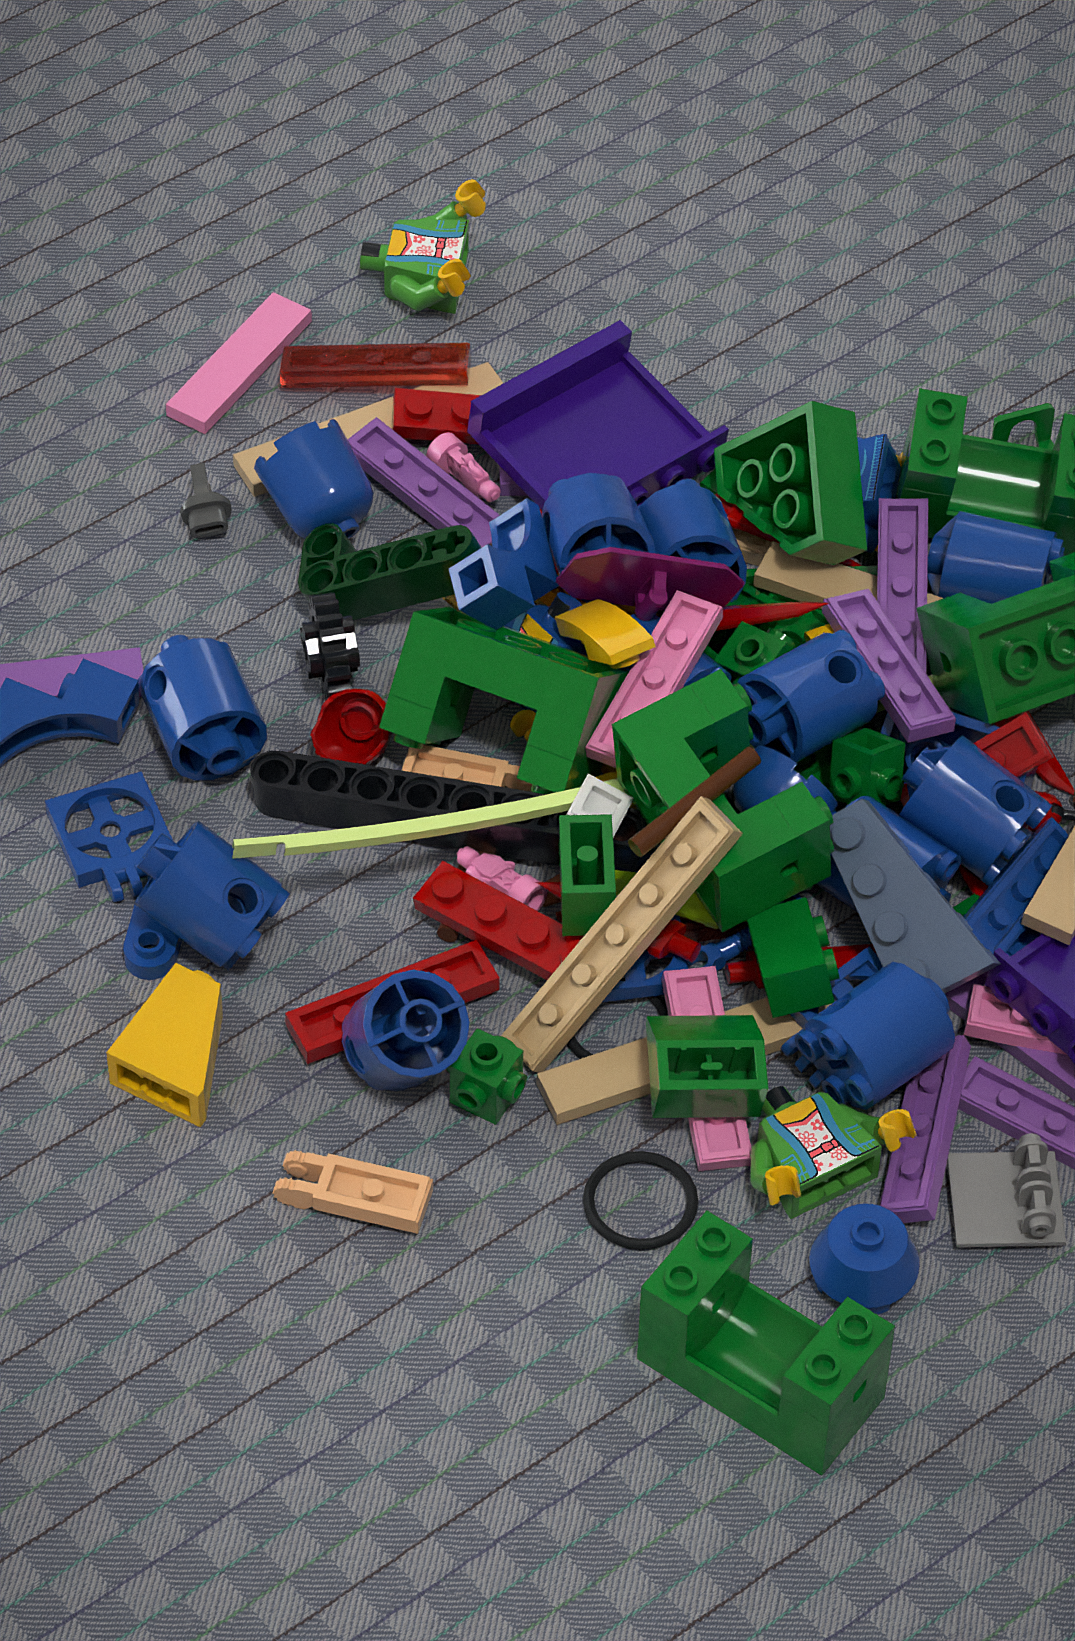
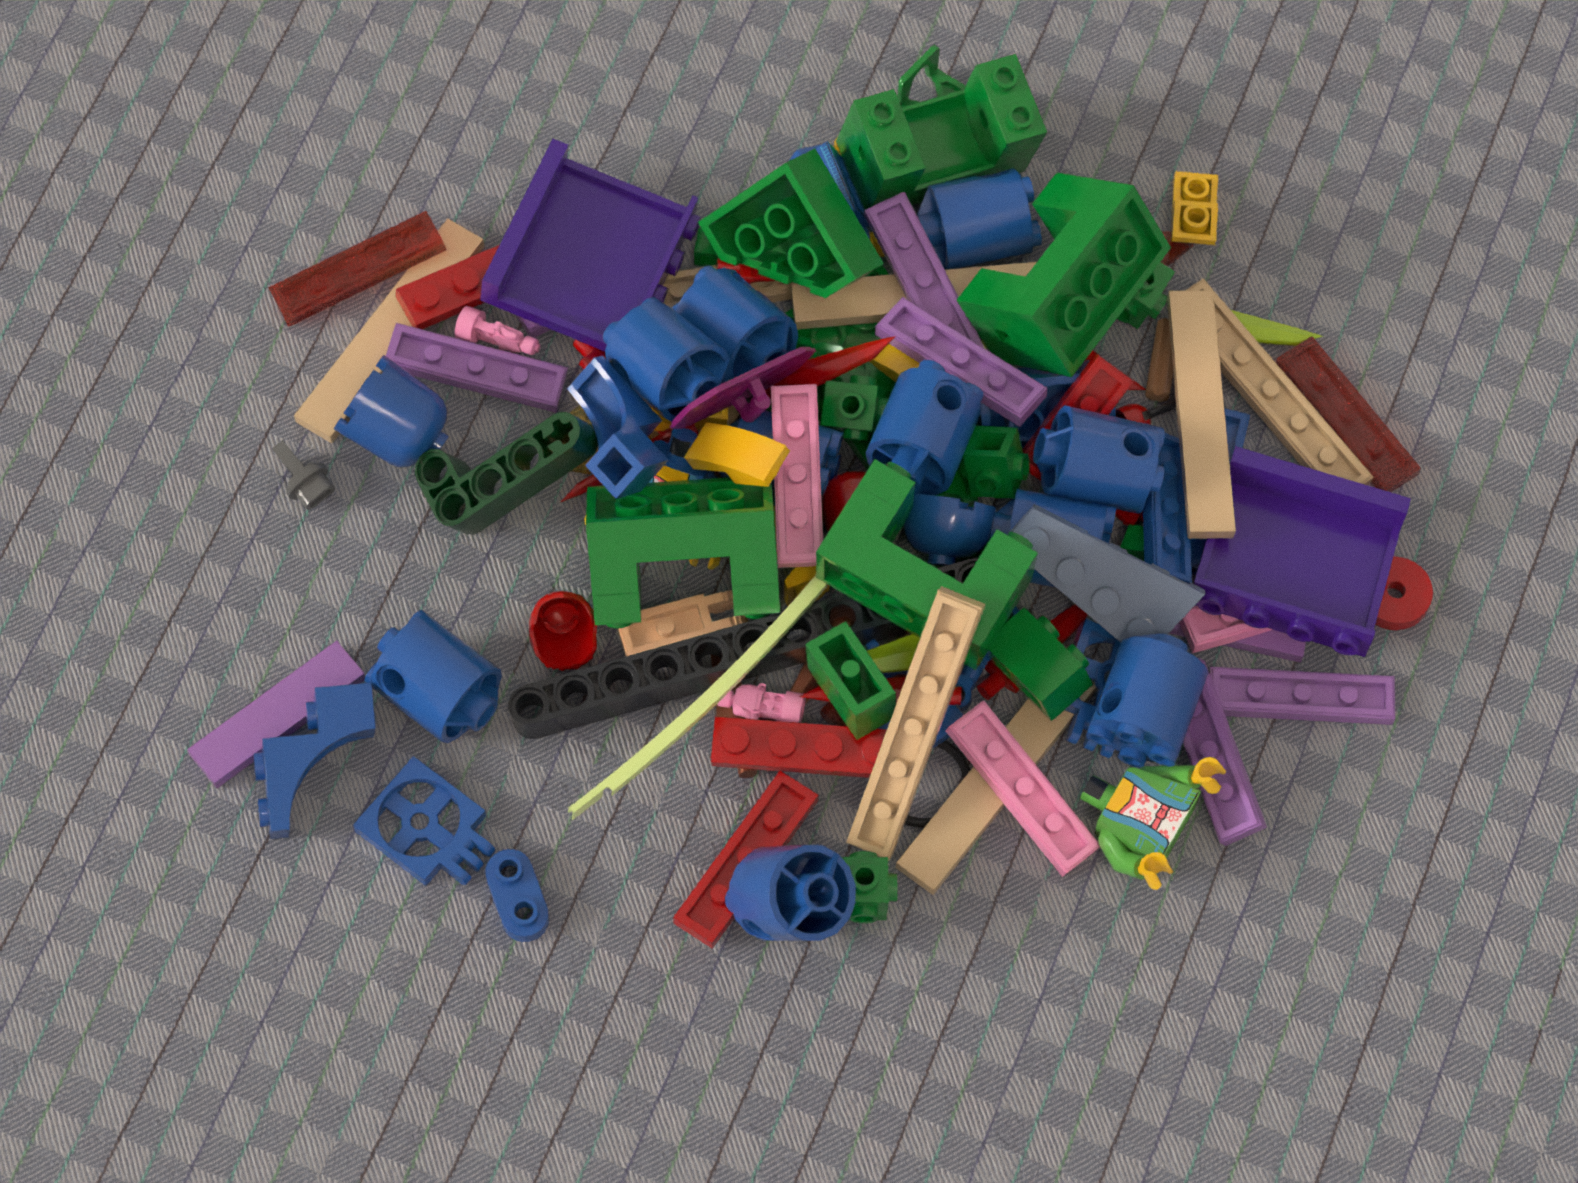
camera: 30 degrees left, 15 degrees up
(172, 1045) = (603, 993): yellow slope -> none
(207, 894) = (554, 857): blue cylinder -> none
(238, 363) = (238, 321): bright pink tile -> none
(329, 644) = (502, 566): black gear -> none
(355, 1190) = (824, 1041): light nougat hinge -> none
(429, 254) = (336, 140): torso -> none
(600, 798) = (819, 611): white tile -> none
(636, 1243) = (1028, 968): black tyre -> none
(706, 1066) = (1034, 792): green slope -> none
(709, 788) = (926, 591): reddish brown bar -> none
(757, 1356) = (1220, 1016): green piece -> none
(865, 1257) = (1236, 891): blue cone -> none
(1007, 1197) = (1303, 777): light grey hinge -> none

